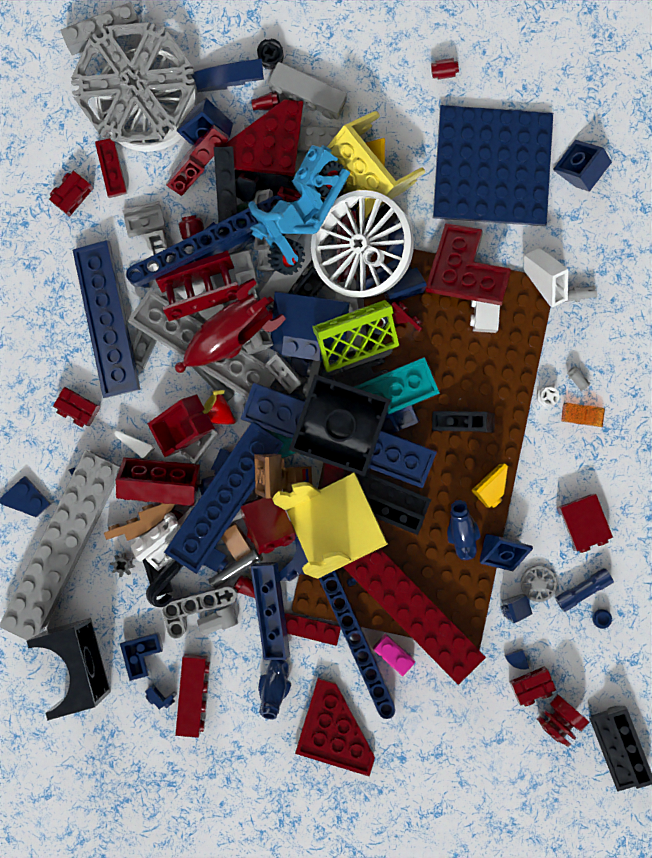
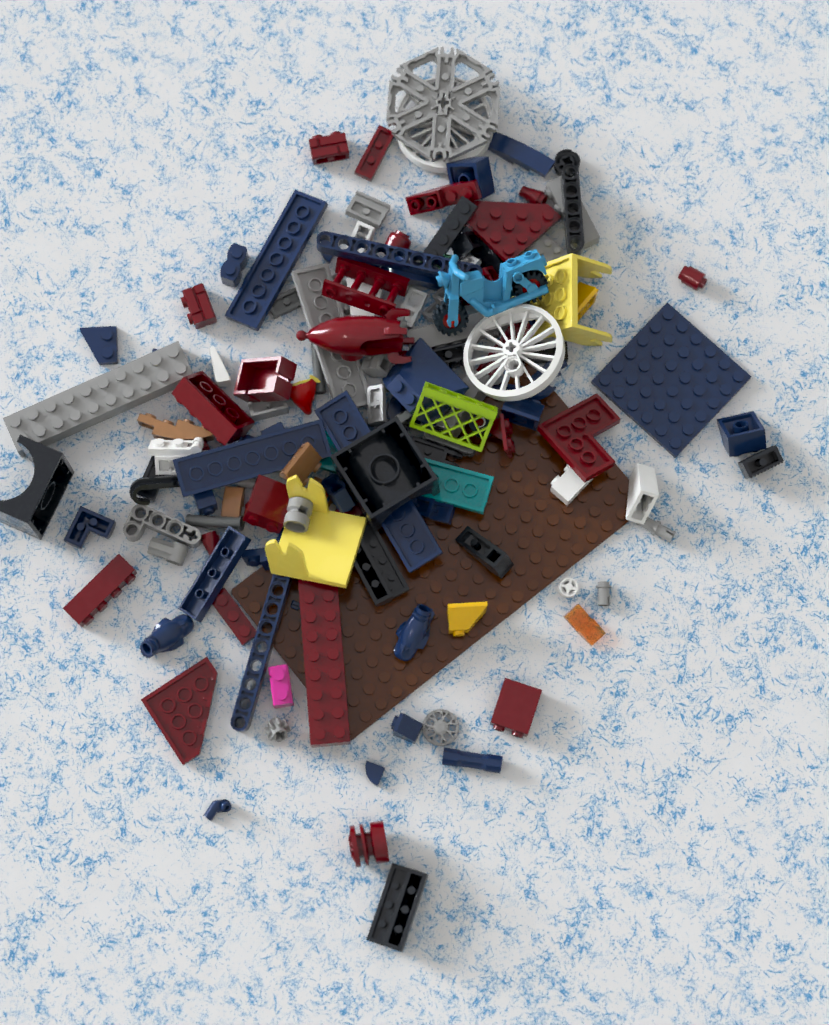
camera: 40 degrees right, 10 degrees down
(76, 347) = (236, 262): none -> dark blue brick
(78, 34) = (432, 38): light grey brick -> none
(117, 563) = (136, 453): dark grey gear -> none
(155, 697) = (71, 568): dark blue bracket -> none
(300, 515) = (298, 514): none -> light grey wheel
(306, 79) = (573, 201): none -> black beam
(314, 469) = (338, 493): none -> dark blue brick
(419, 689) = (277, 729): none -> light grey gear
(420, 785) = (216, 807): none -> dark blue arm
(503, 552) = (432, 677): dark blue slope -> none
(533, 686) = (368, 801): dark red brick -> none
(602, 618) = (467, 795): dark blue plate -> none
(617, 176) = (760, 462): none -> black brick

